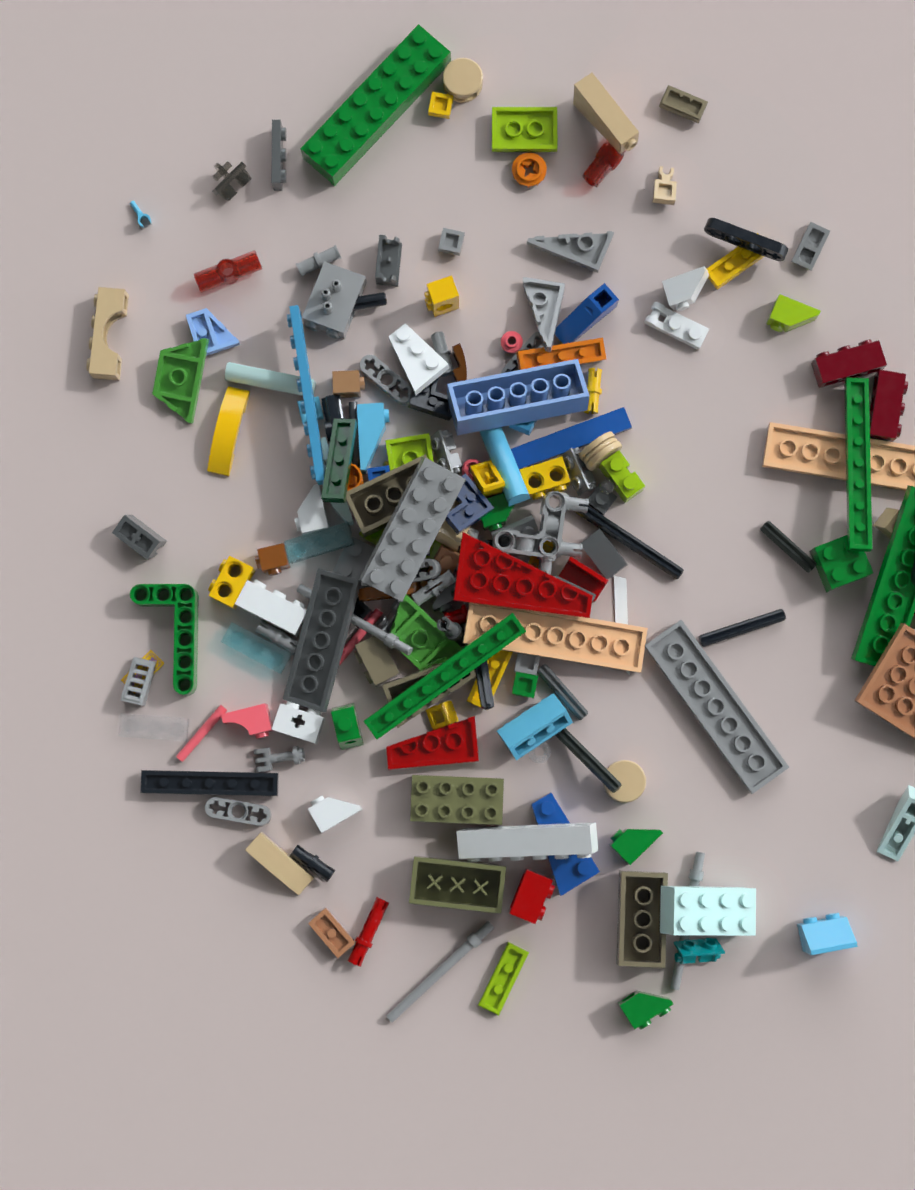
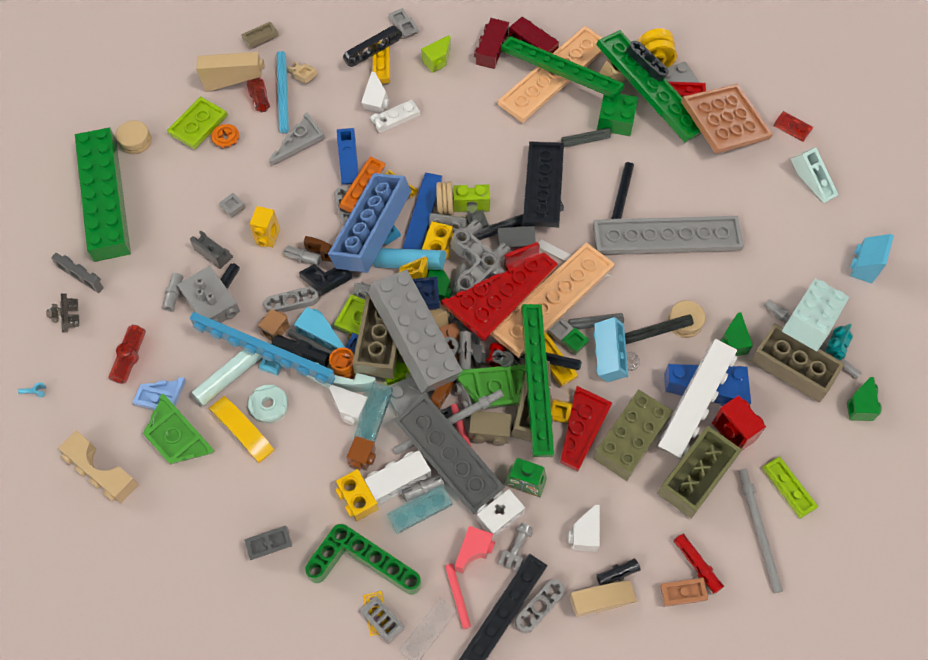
camera: 60 degrees left, 20 degrees down
(268, 424) = (272, 413): none -> light aqua tile
(339, 460) = (326, 354): dark green plate -> none
(417, 358) = (293, 268): white wing -> none
(440, 105) = (137, 158): yellow plate -> none
(511, 348) = (329, 215): coral plate -> none
(545, 303) = (321, 174): light grey wing -> none
(626, 184) = (282, 92): none -> medium azure axle
(690, 540) = (543, 184): none -> black plate

